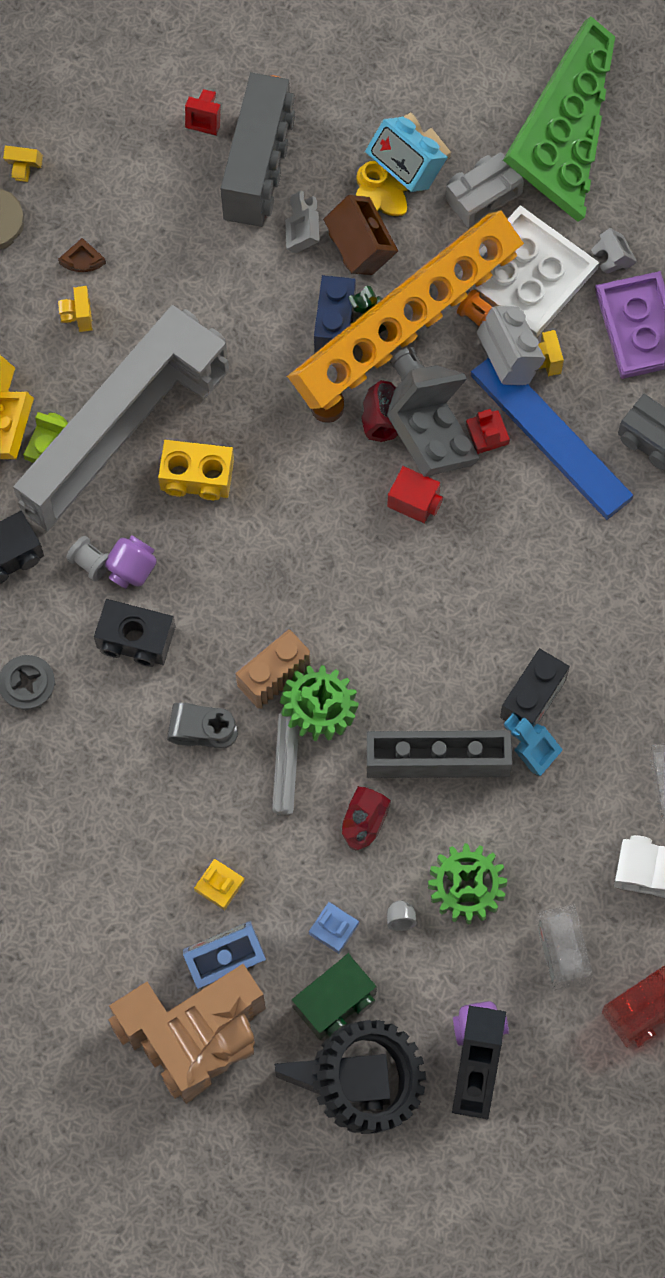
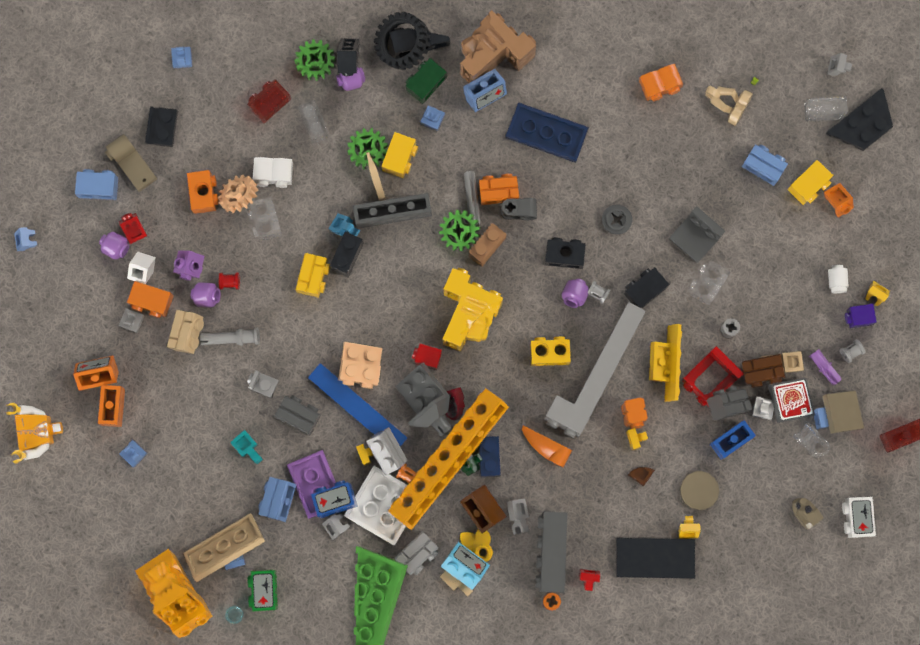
camera: 170 degrees right, 10 degrees up
(46, 431) = (635, 357): lime bracket -> none
(71, 341) = (634, 413): none -> orange brick
(89, 130) = (655, 558): none -> black tile
(121, 865) = (547, 132): none -> dark blue tile
(219, 884) = (494, 130): yellow tile -> none
(221, 312) = (546, 447): none -> orange piece
(233, 767) = (498, 189): none -> orange brick
(320, 550) = (473, 312): none -> yellow brick
(364, 817) = (426, 175): dark red rock -> none
(401, 916) = (400, 127): light grey hinge -> none
(408, 860) = (399, 155): none -> yellow brick
(460, 818) = (375, 178): none -> tan piece
(487, 431) = (393, 404): red tile -> none
(537, 498) = (360, 365): none -> light nougat plate
(557, 1087) = (309, 53): none -> bright green gear
(602, 667) = (312, 275): none -> yellow brick
(612, 281) = (334, 499): none -> brick

